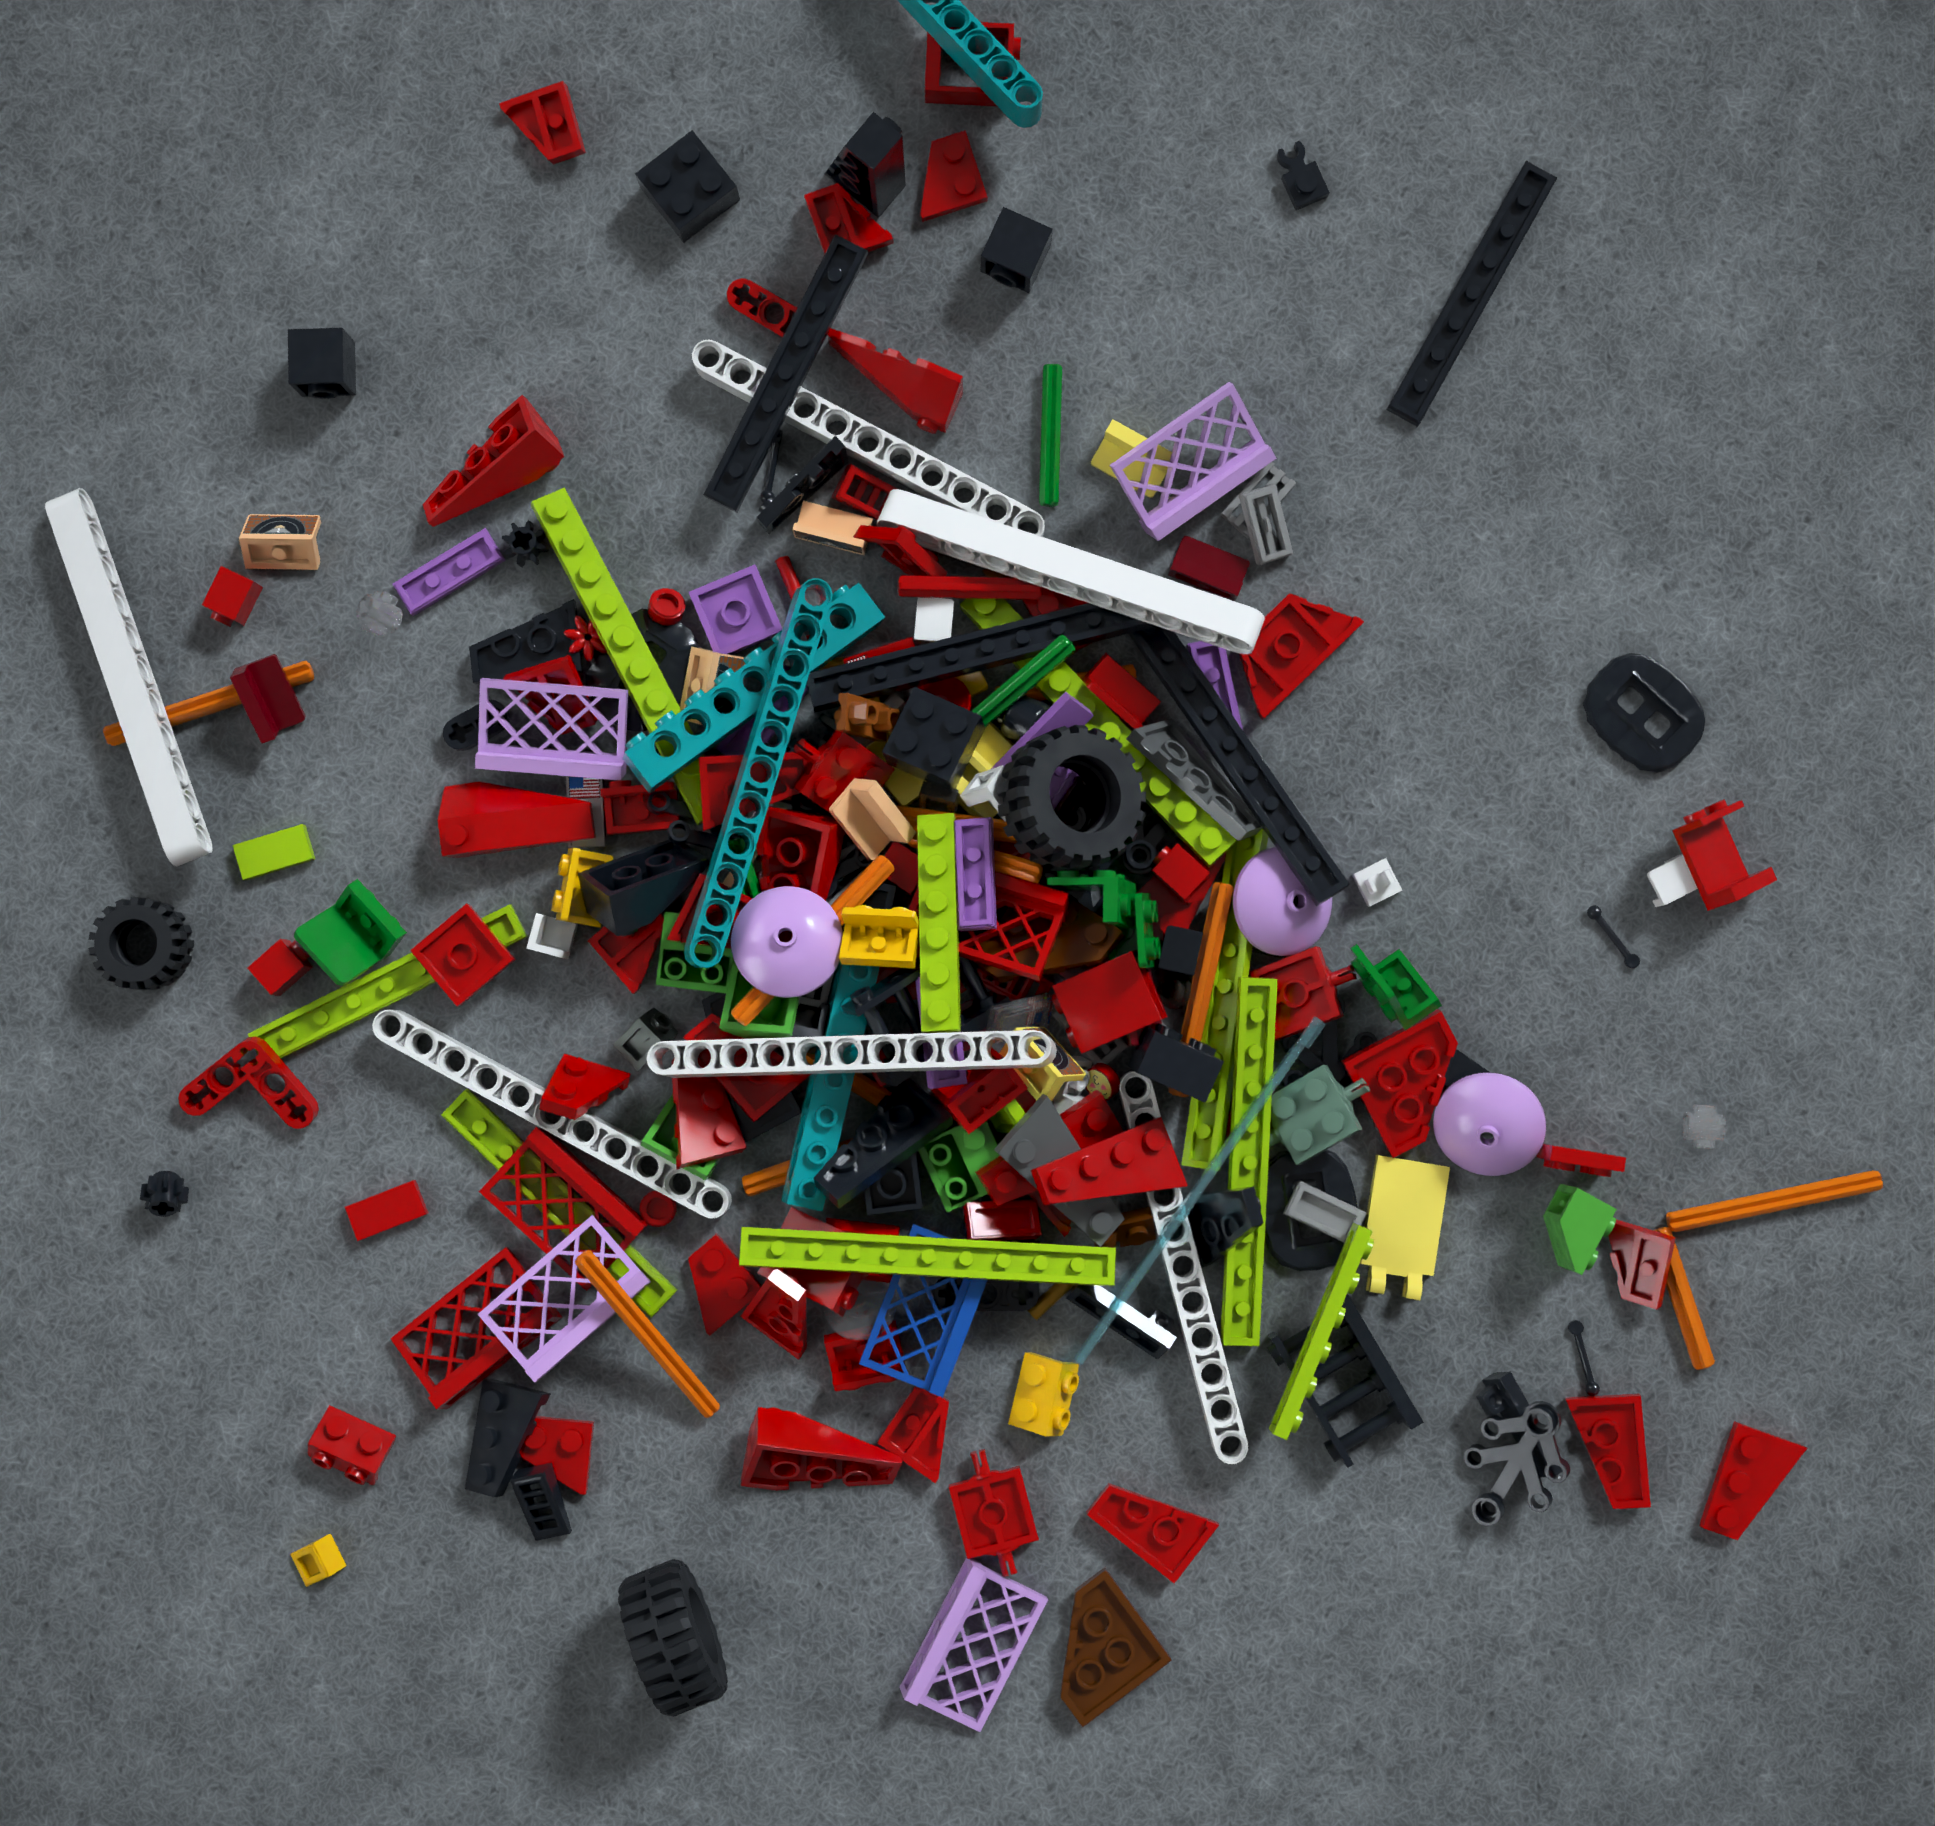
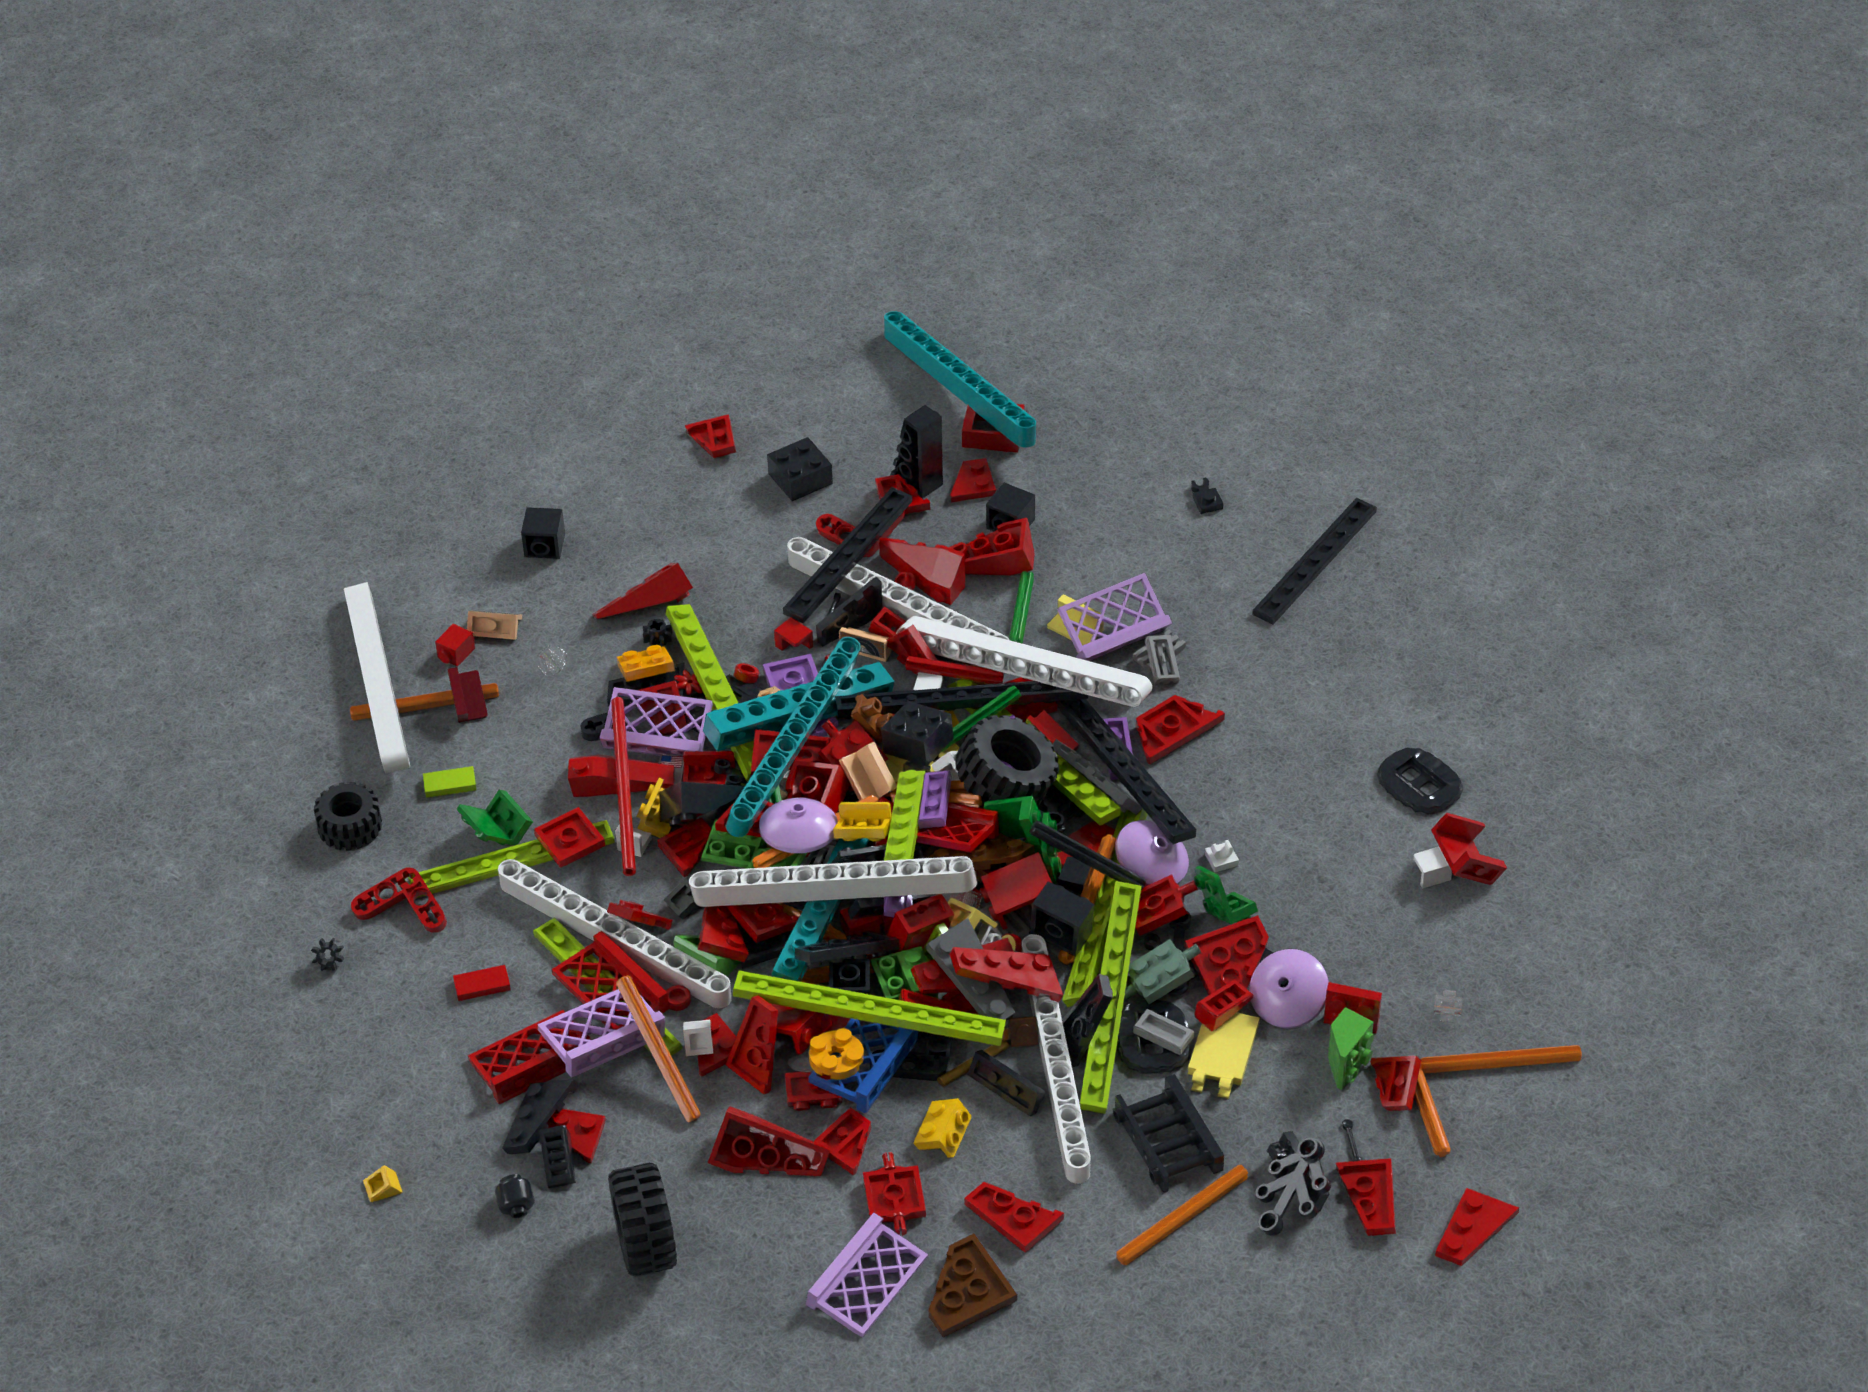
camera: 10 degrees right, 40 degrees down
(281, 966) = (440, 838): red brick -> none
(350, 1446) = (422, 1115): red bracket -> none
(448, 572) = (602, 648): medium lavender tile -> none
(495, 1571) = (514, 1195): none -> black head
(517, 608) = (645, 663): none -> light orange plate
(524, 868) = (623, 787): none -> red piece
(697, 1291) = (698, 1037): none -> white panel
(725, 532) = (793, 633): none -> red panel
(874, 404) = (906, 580): none -> red plate
(886, 1347) = (836, 1041): none -> light orange plate
(1000, 332) = (1000, 552): none -> red wedge
(1179, 872) = (1081, 826): red brick -> none
(1200, 954) = (1085, 854): none -> black axle
(1305, 1040) = (1159, 919): clear light blue piece -> none
(1316, 1344) = (1147, 1090): lime plate -> none
(1371, 1500) = (1181, 1215): none -> orange axle
(1404, 1180) = (1211, 1016): none -> red slope
(1630, 960) = (1402, 915): black hinge -> none

